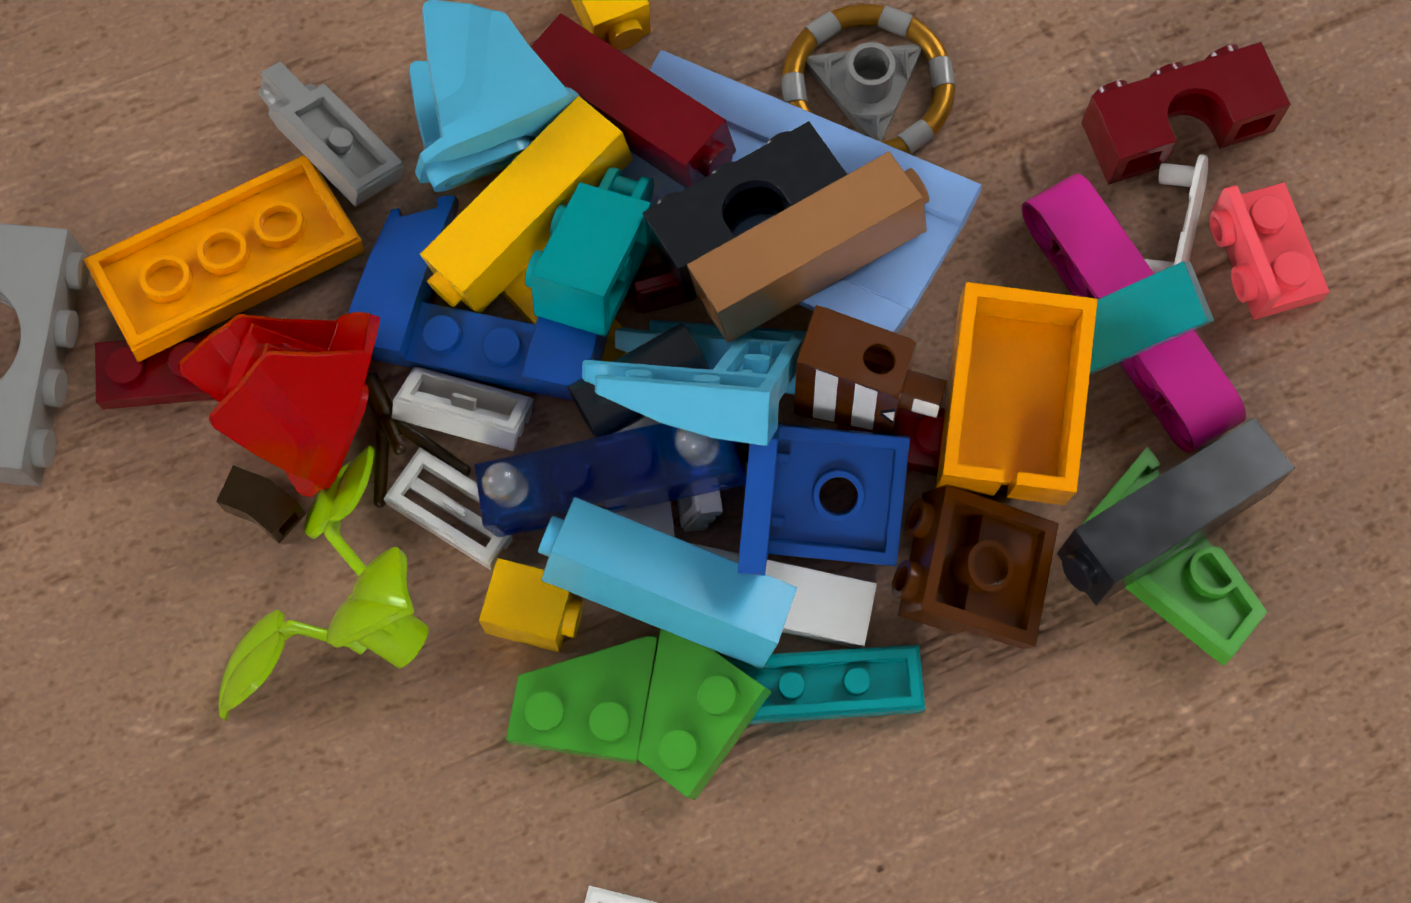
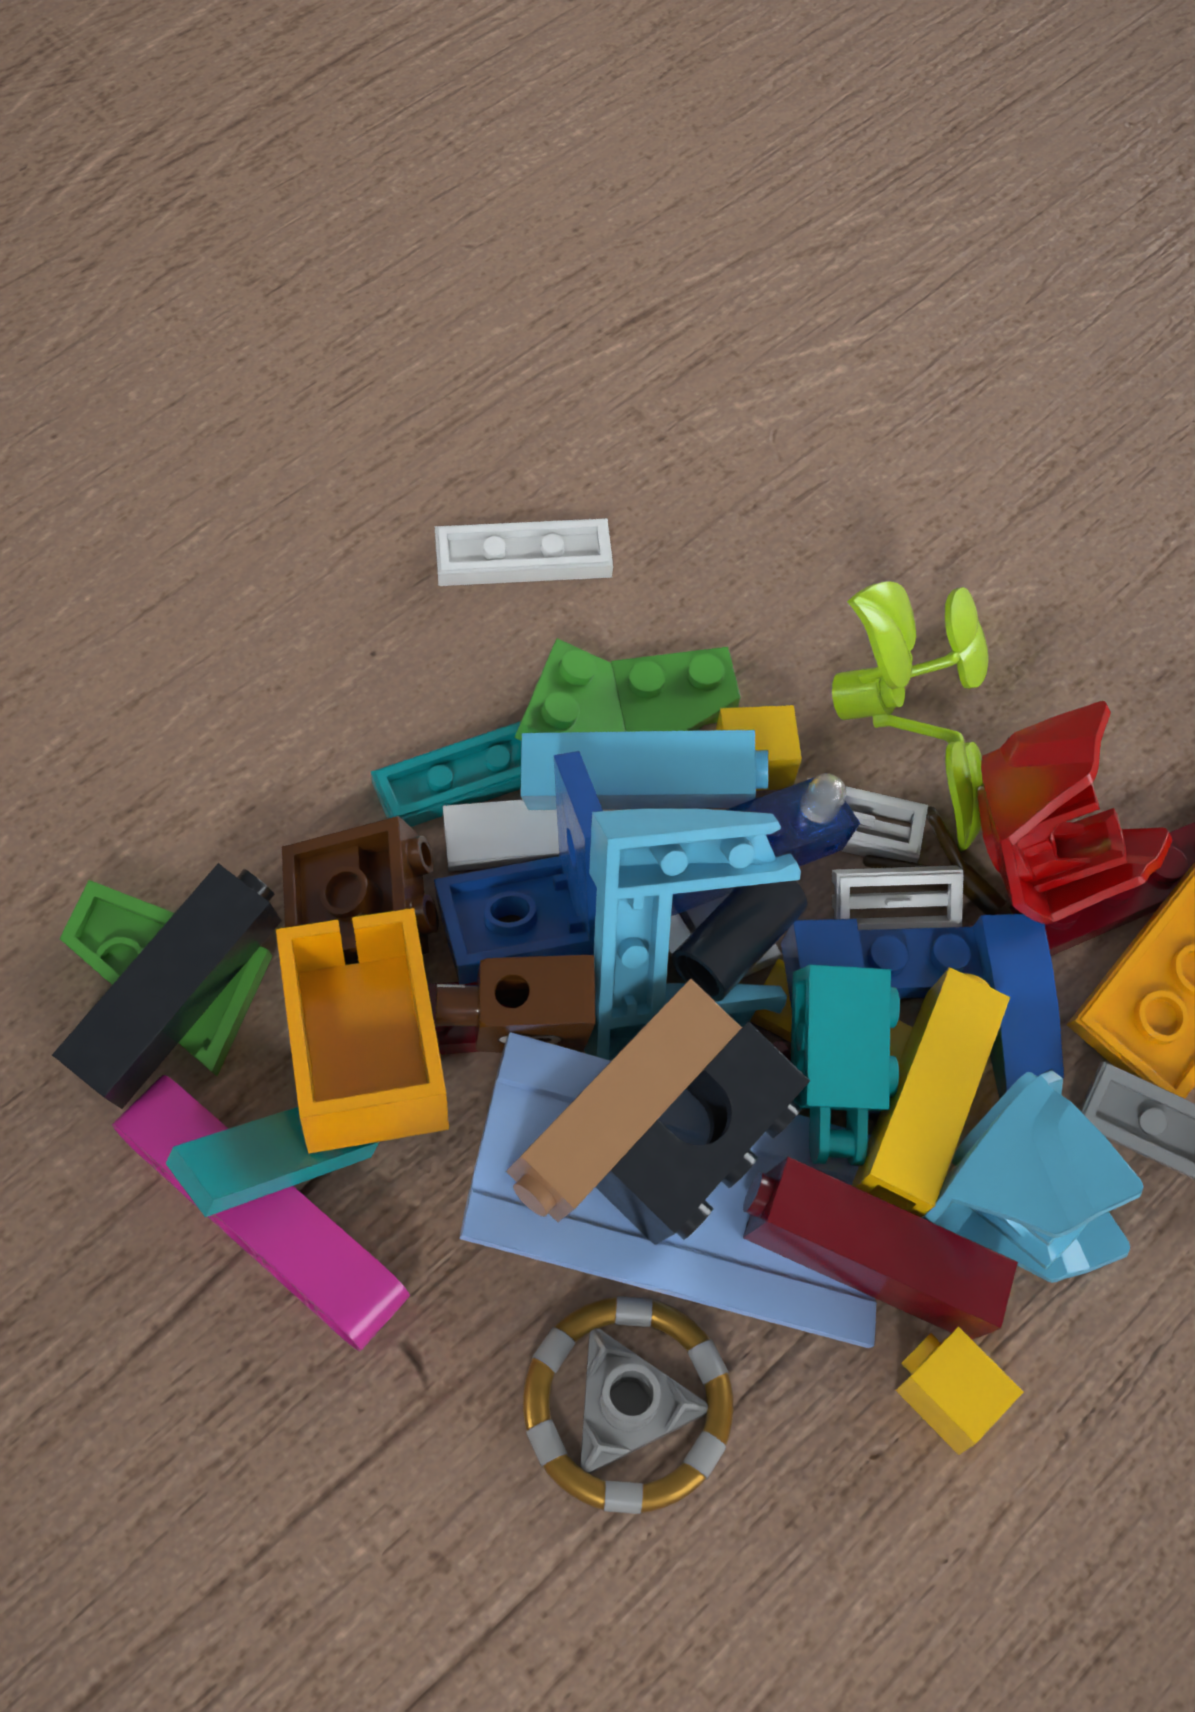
camera: 155 degrees right, 10 degrees down
(1191, 177) = (215, 1401): white piece -> none
(1228, 91) = (196, 1528): dark red arch -> none
(1267, 250) = (115, 1343): coral bracket -> none

